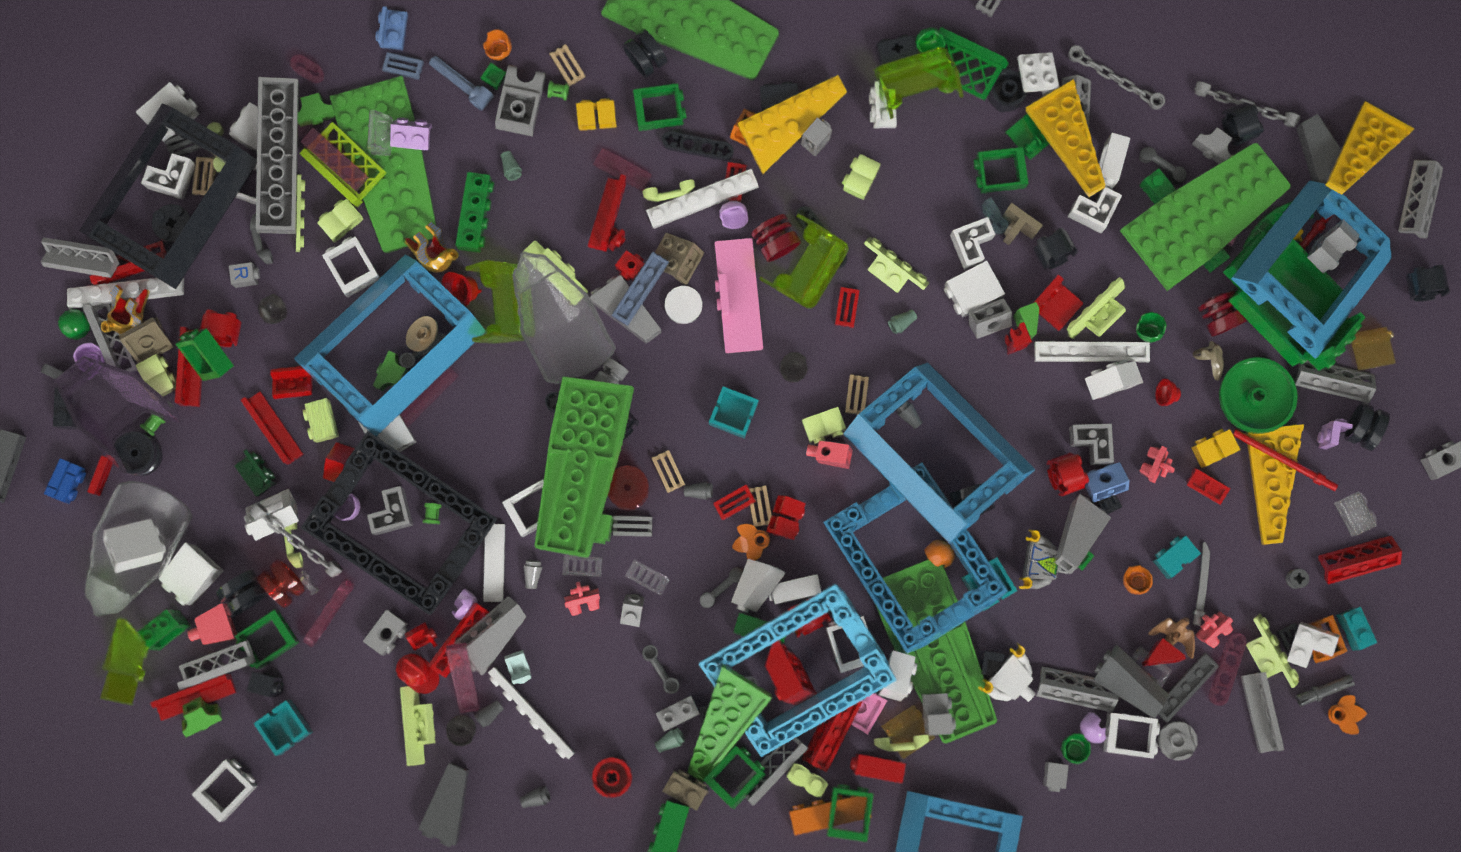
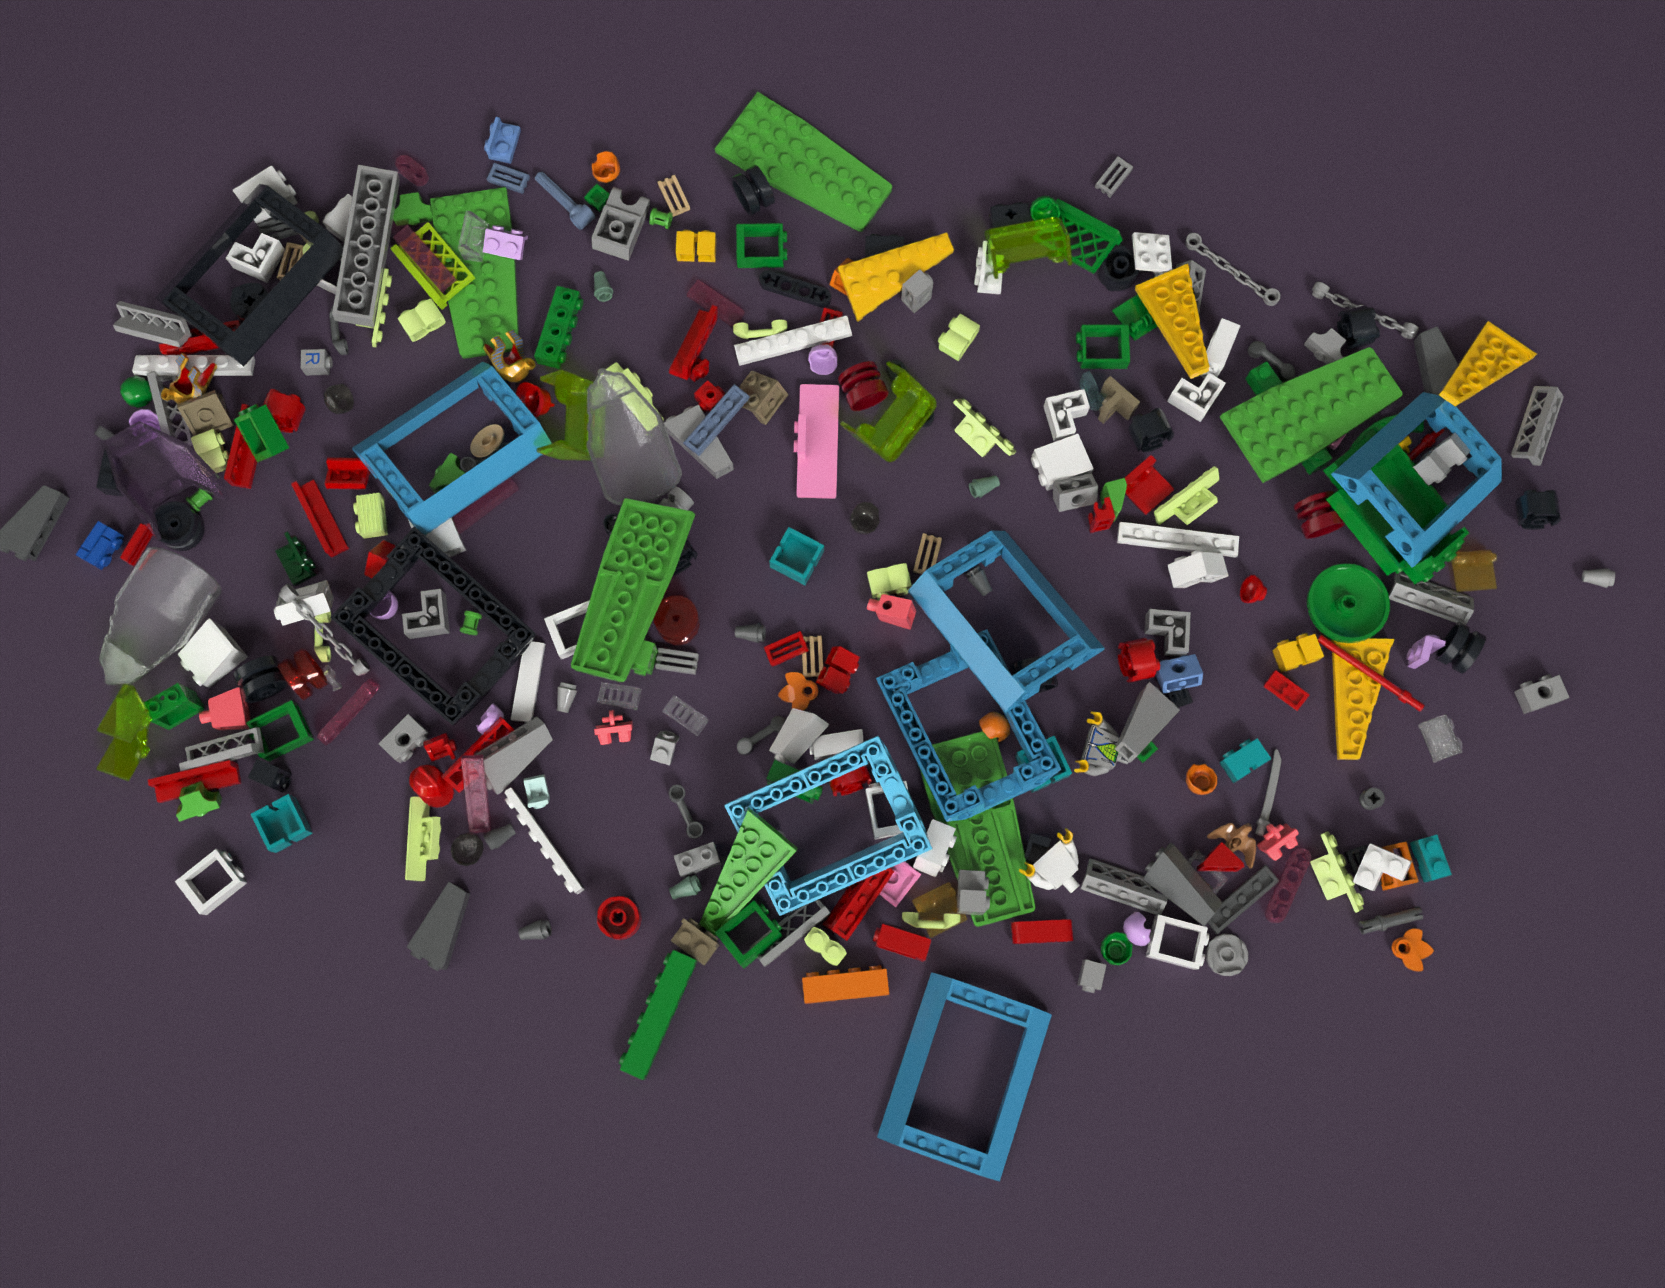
camera: 10 degrees right, 5 degrees down
(133, 545) = (156, 615): white brick -> none
(360, 282) = (431, 383): white window -> none
(661, 456) = (716, 593): tan tile -> none
(683, 304) = (759, 443): white tile -> none
(788, 675) = (818, 831): red wedge -> none
(844, 323) = (924, 481): red tile -> none
(844, 833) = (858, 1007): green window -> none
(1005, 740) = (1042, 931): none -> red beam
(1151, 327) = (1242, 521): green hair -> none
(1159, 456) = (1236, 663): coral hips -> none
(1213, 353) = (1307, 556): dark tan piece -> none
(1262, 712) = (1320, 935): light grey fence -> none
(1363, 562) = (1444, 790): red fence -> none

